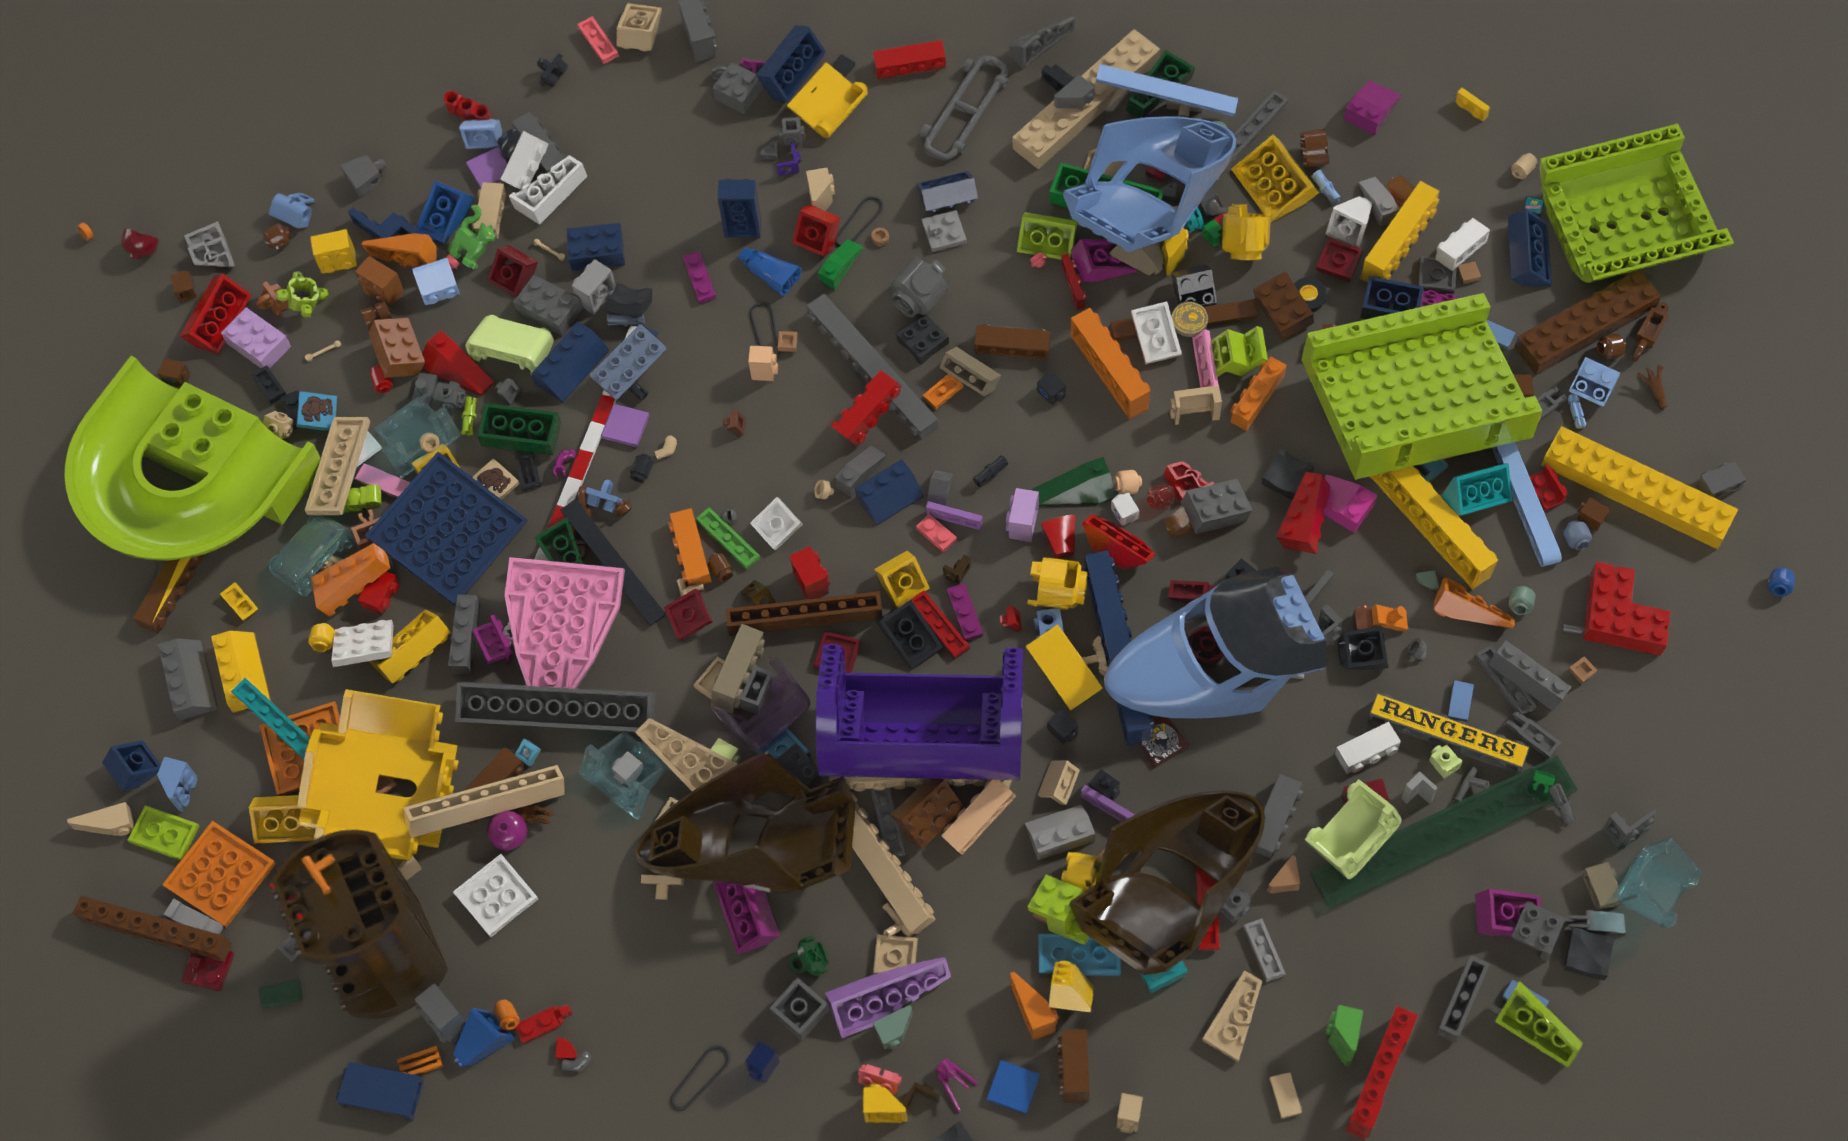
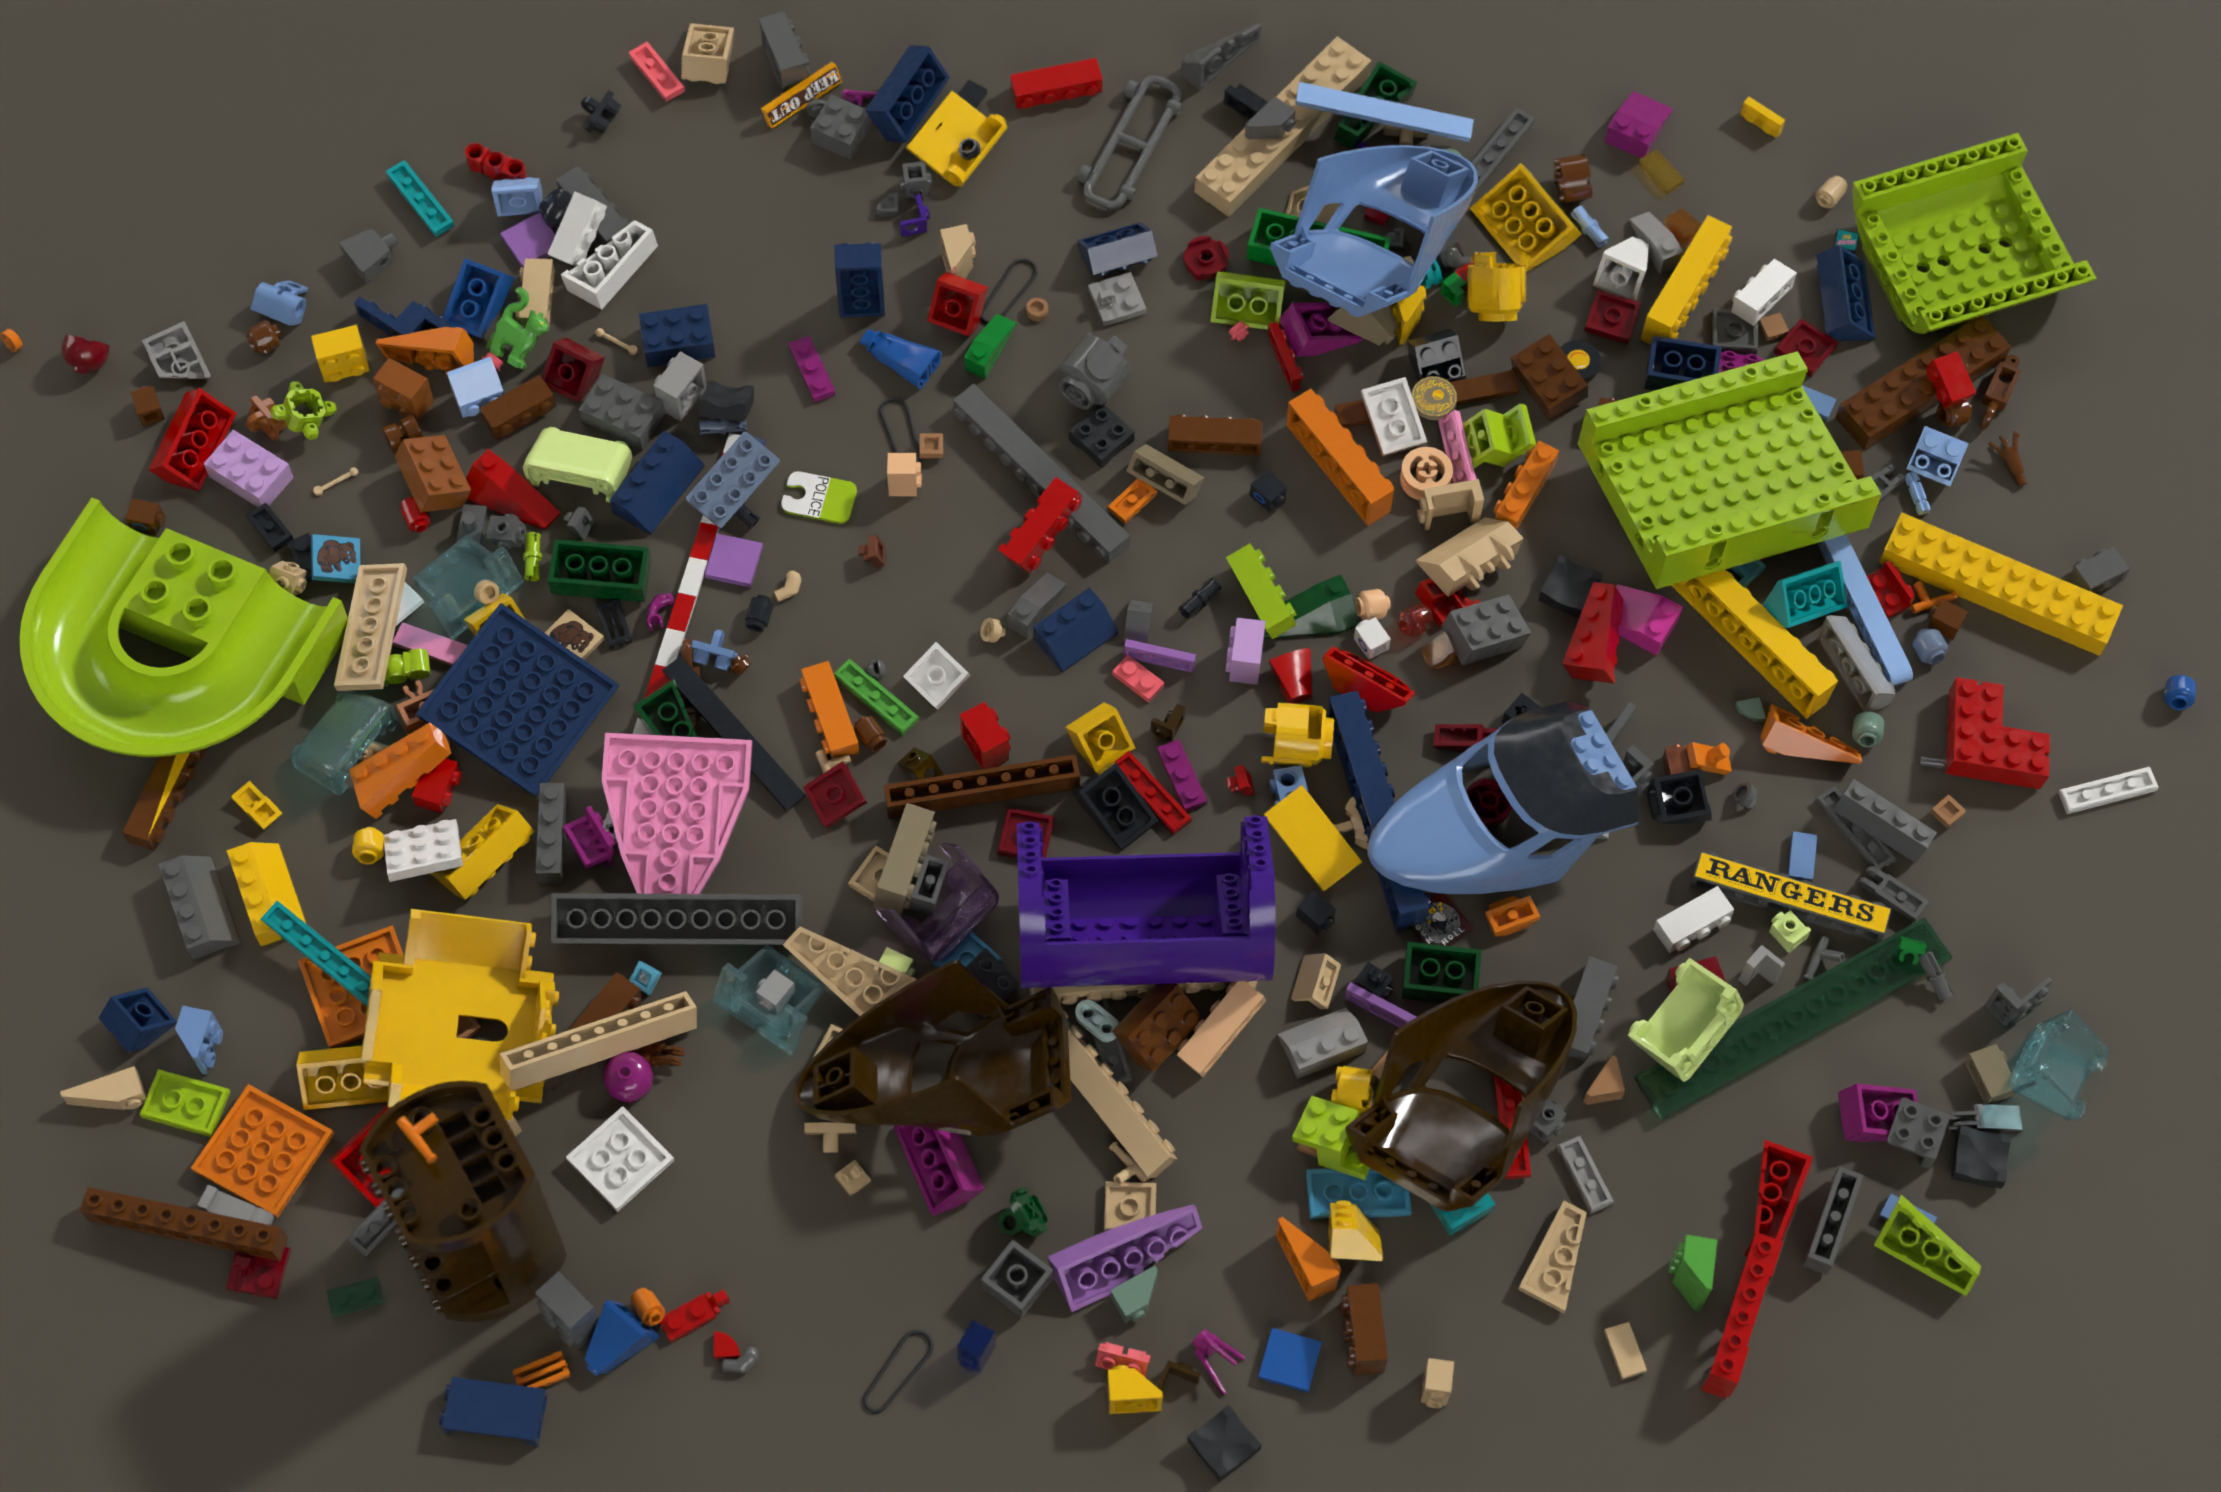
camera: 10 degrees left, 0 degrees up
(406, 132) = (420, 198): none -> teal plate
(467, 298) = (517, 407): none -> reddish brown brick
(677, 920) = (852, 1178): none -> tan tile
(700, 380) = (824, 499): none -> piece
(708, 61) = (801, 95): none -> tile
(836, 108) = (969, 144): none -> black plate
(880, 806) = (1099, 1020): none -> light aqua plate
(1016, 210) = (1205, 269): none -> dark red plate
(1039, 467) = (1261, 590): none -> lime brick
(1157, 780) = (1439, 972): none -> dark green brick
(1180, 369) = (1427, 461): none -> light nougat wheel
(1210, 445) = (1472, 555): none -> tan piece
(1220, 737) = (1511, 915): none -> orange slope
(1387, 145) = (1661, 171): none -> clear yellow tile
(1421, 970) = (1780, 1188): none -> red wedge
(1497, 289) = (1810, 343): none -> dark red tile
(1515, 547) = (1855, 664): none -> light grey slope
(1577, 499) = (1927, 603): none -> orange piece
(1608, 320) = (1950, 379): none -> red brick
(1716, 659) = (2108, 790): none -> white tile

